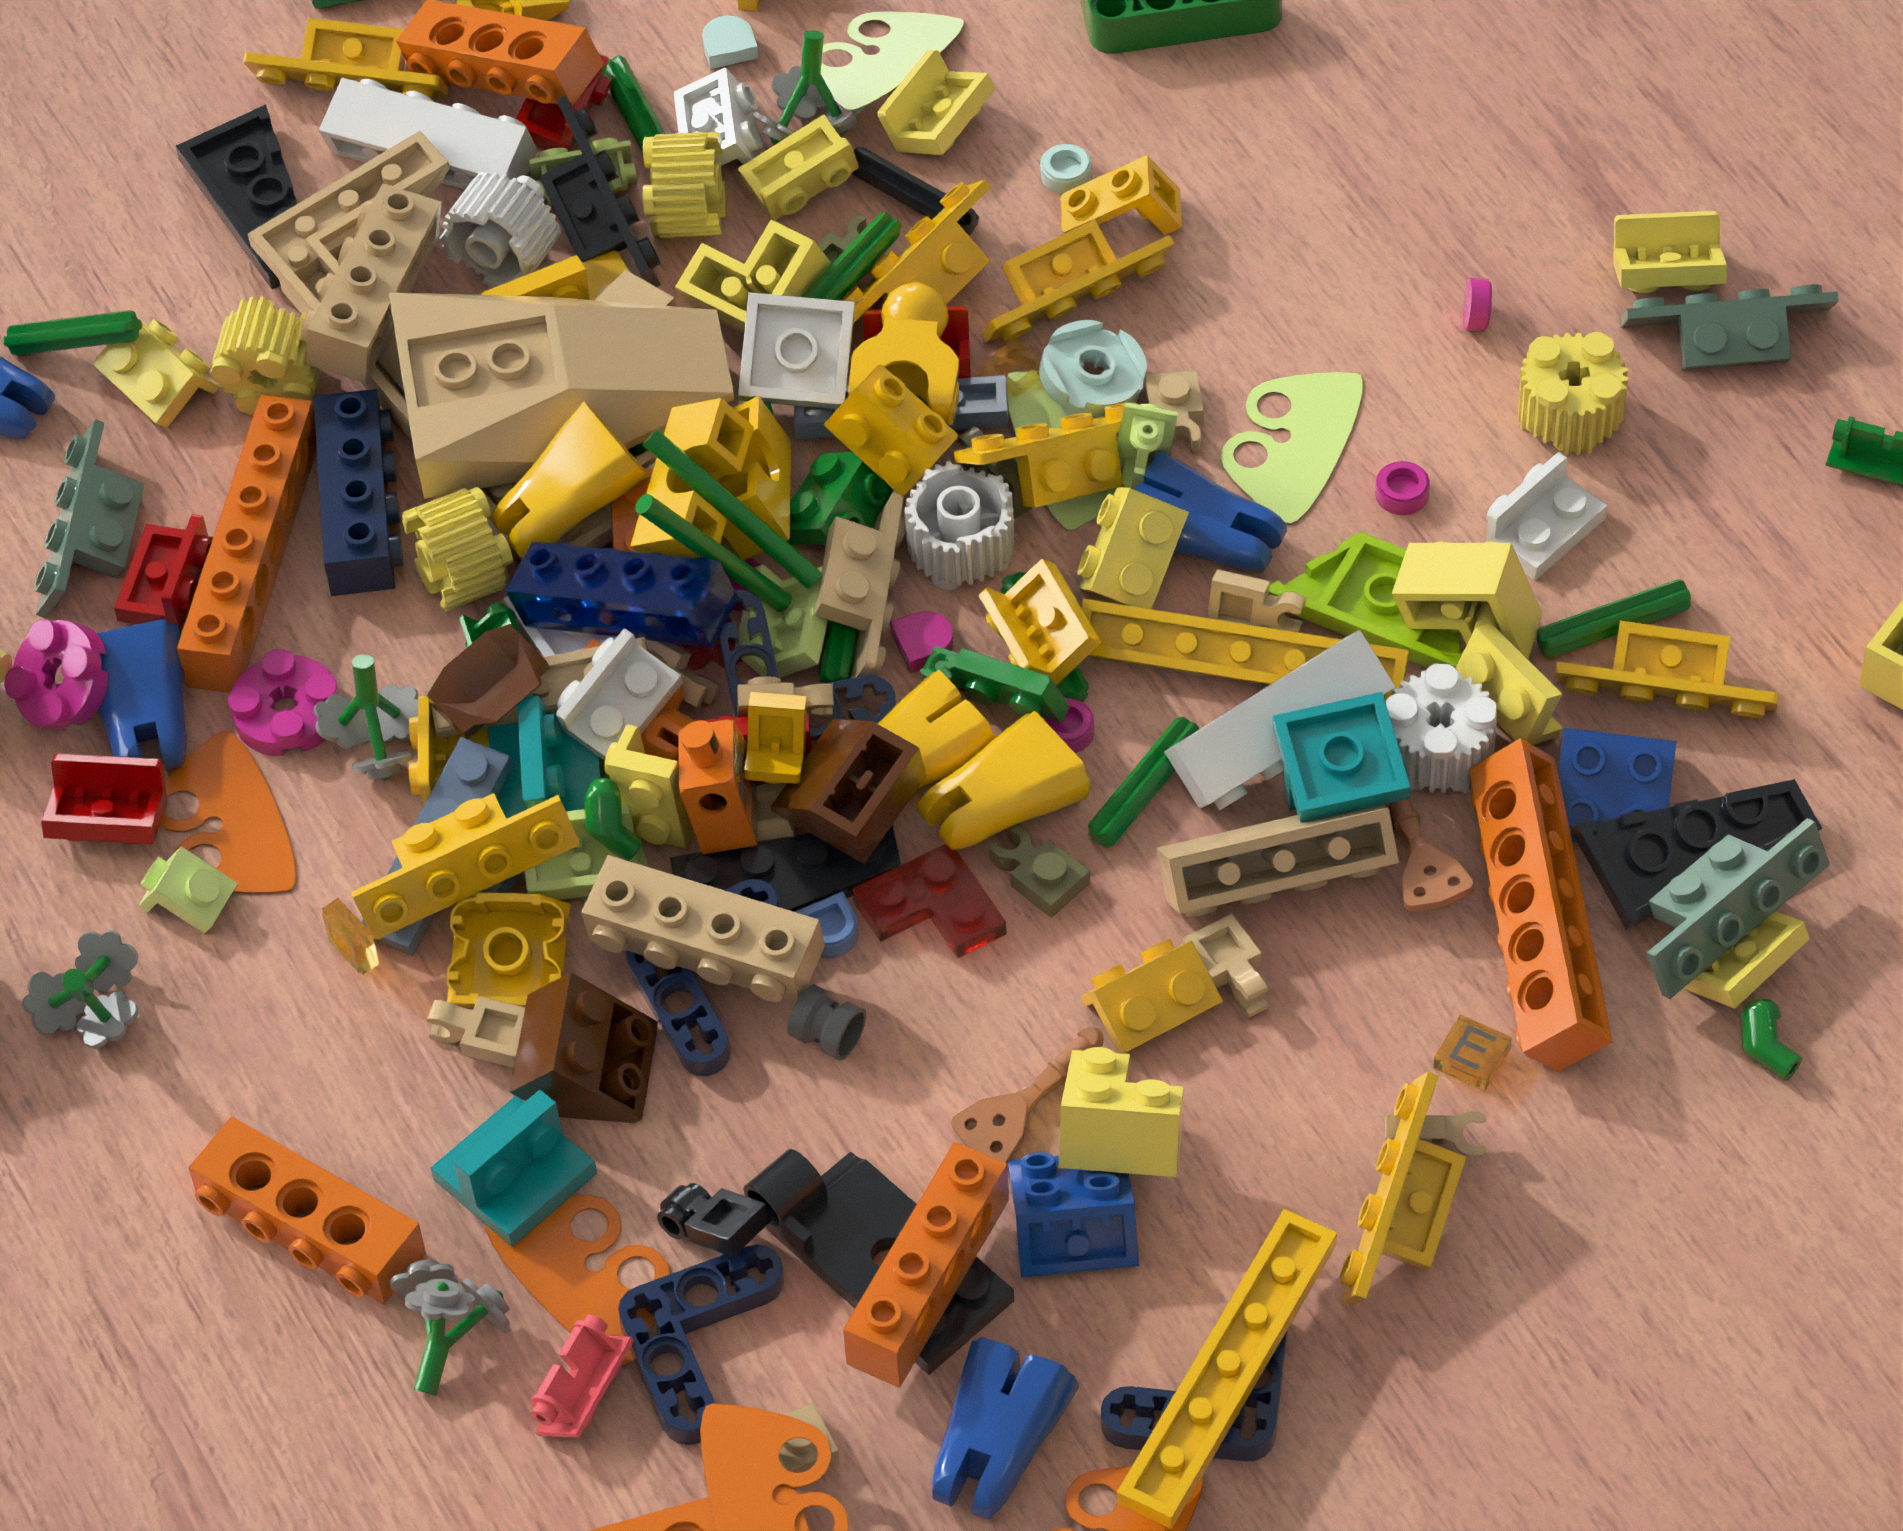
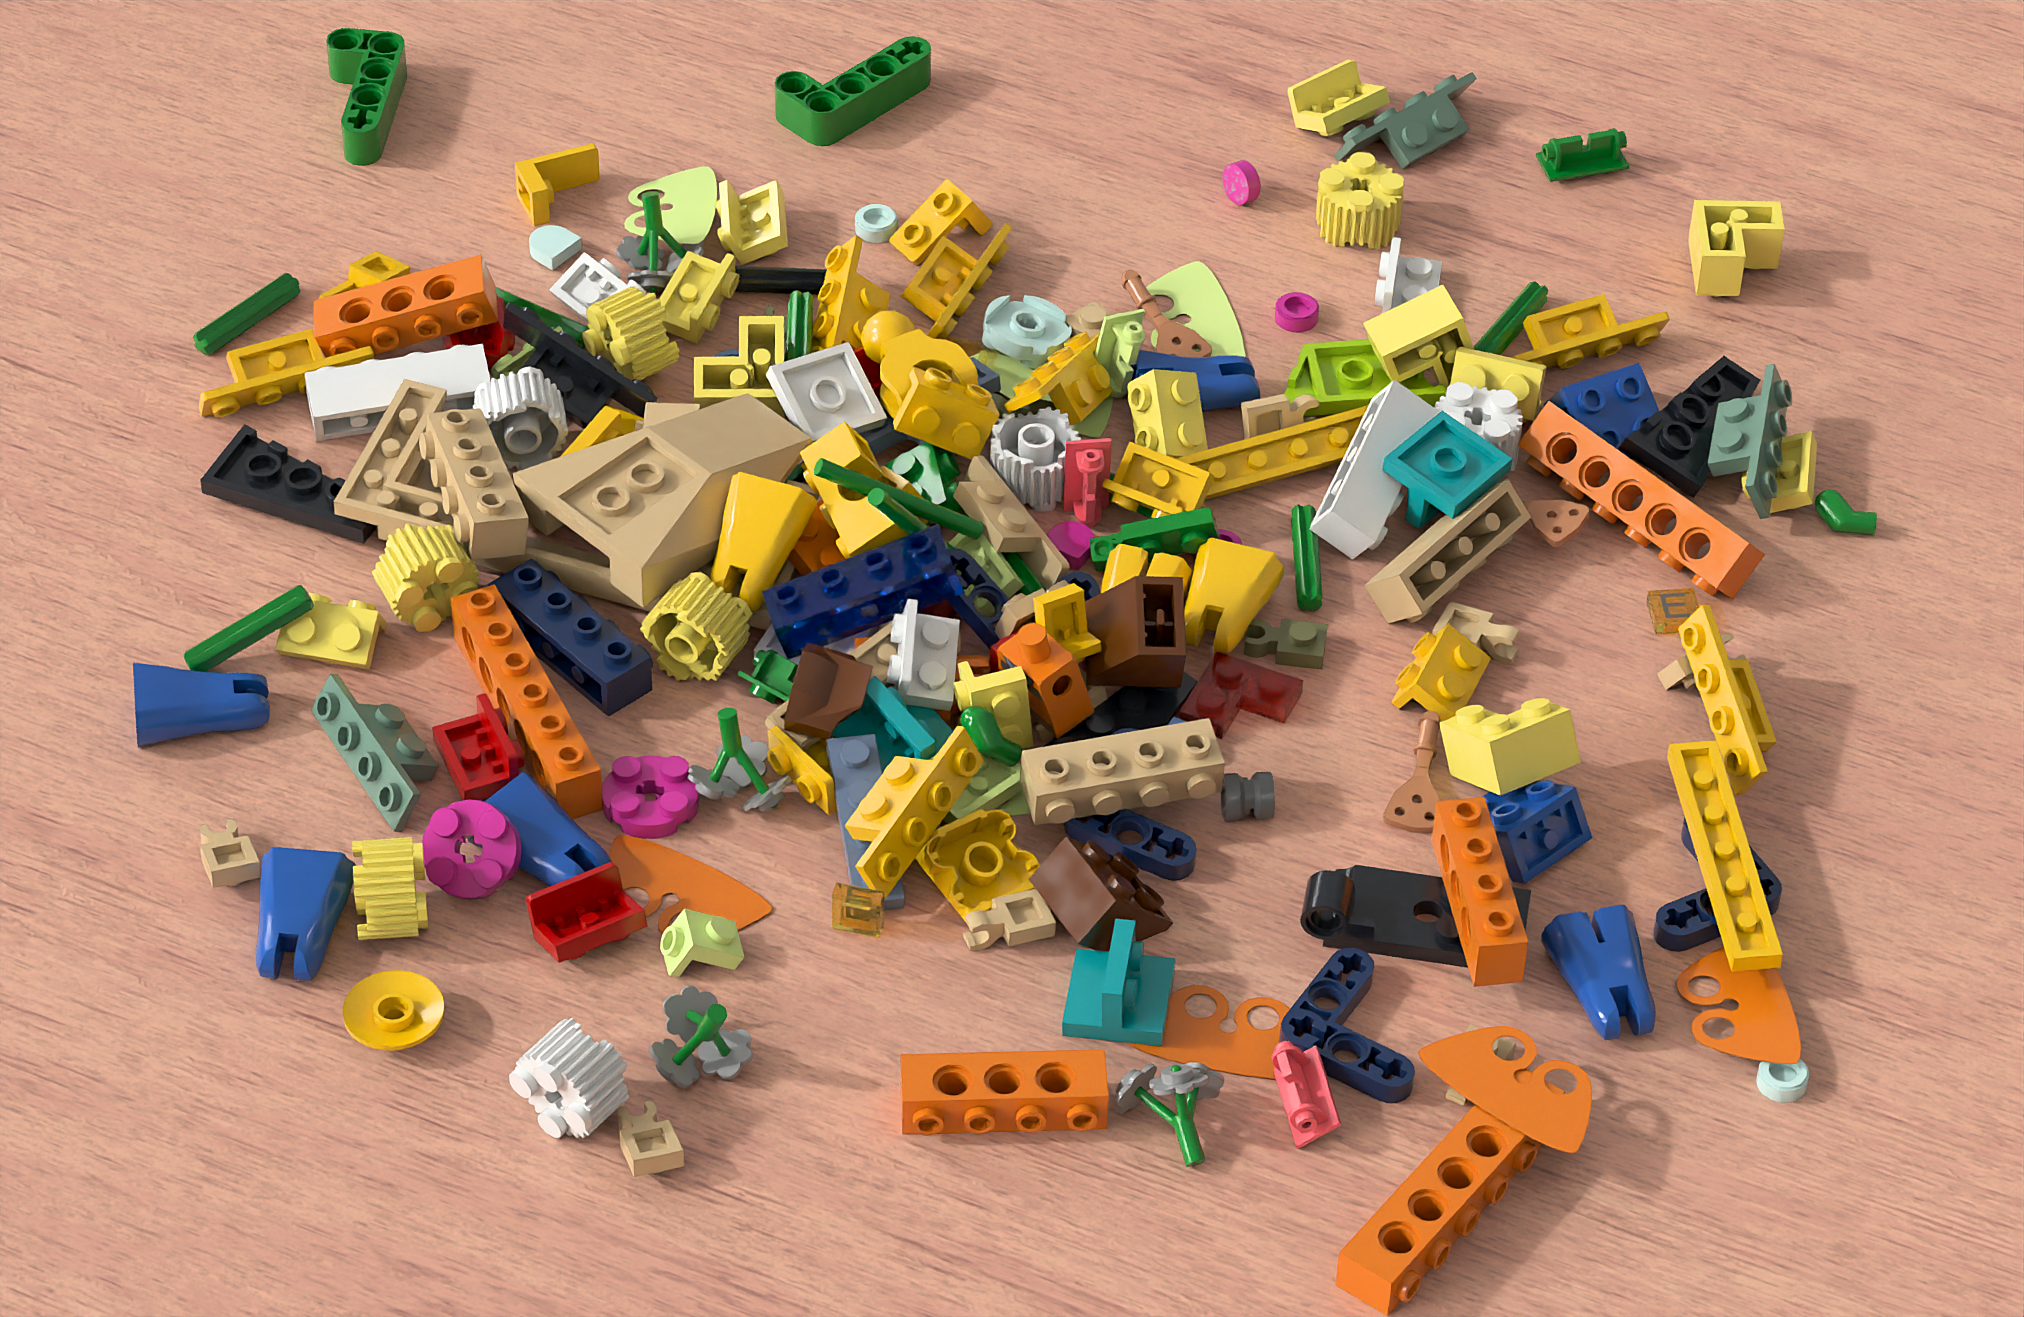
camera: 40 degrees left, 10 degrees down
(715, 1222) = (1304, 946): black plate -> none
(978, 565) = (1084, 473): none -> coral hinge
(1242, 442) = (1167, 330): none -> nougat piece

